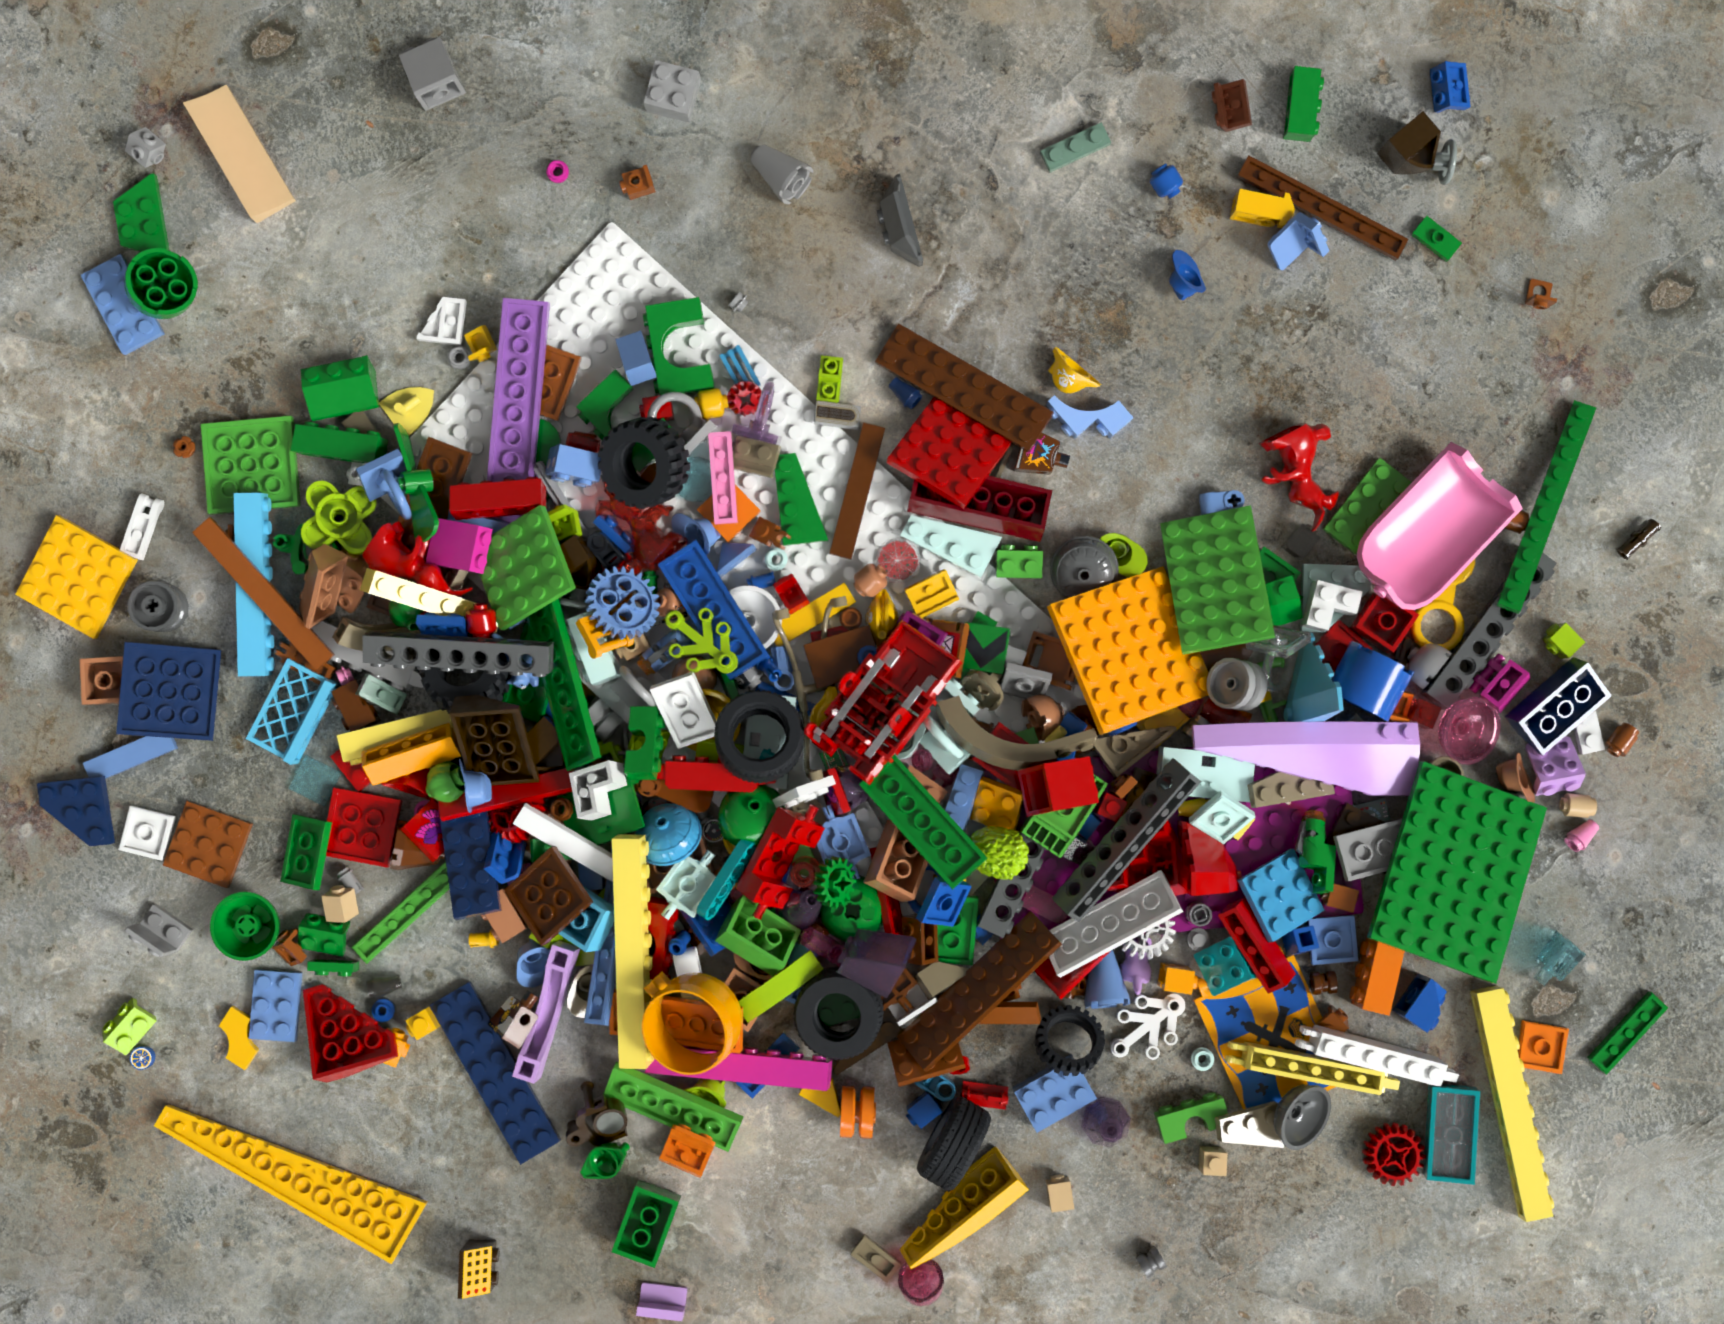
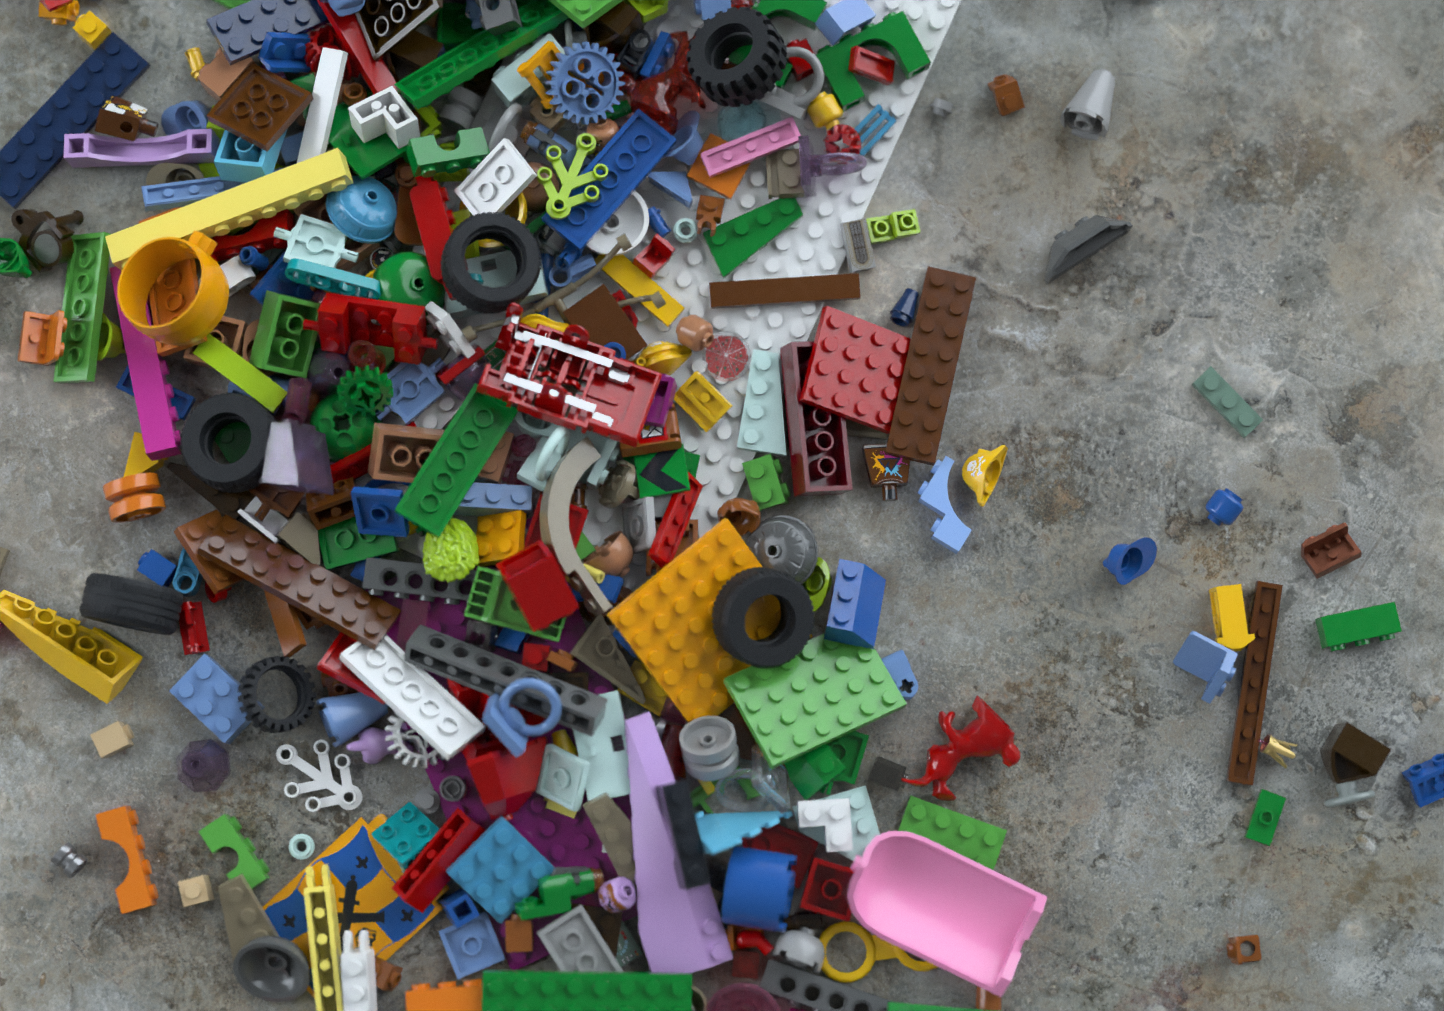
camera: 65 degrees right, 5 degrees down
(684, 349) = (871, 65): none -> red tile
(745, 242) = (1006, 94): none -> dark orange bracket
(850, 618) = (649, 326): dark orange plate -> none
(1036, 652) = (674, 524): none -> red tile
(1041, 593) = (742, 514): none -> dark orange hair
(1137, 1210) = (136, 890): none -> orange arch
(1150, 521) = (855, 605): none -> blue slope
(1166, 590) = (794, 623): none -> black tyre
(1168, 849) = (509, 723): none -> medium blue tile
(1177, 978) = (377, 788): light orange brick -> none
(1293, 727) = (688, 849): none -> black arch
(1323, 982) = (422, 949): reddish brown wheel -> none
(1334, 802) = (615, 894): none -> lavender head
(1384, 209) = (1271, 745): none -> pearl gold piece
(1405, 703) = (753, 938): none -> red arm

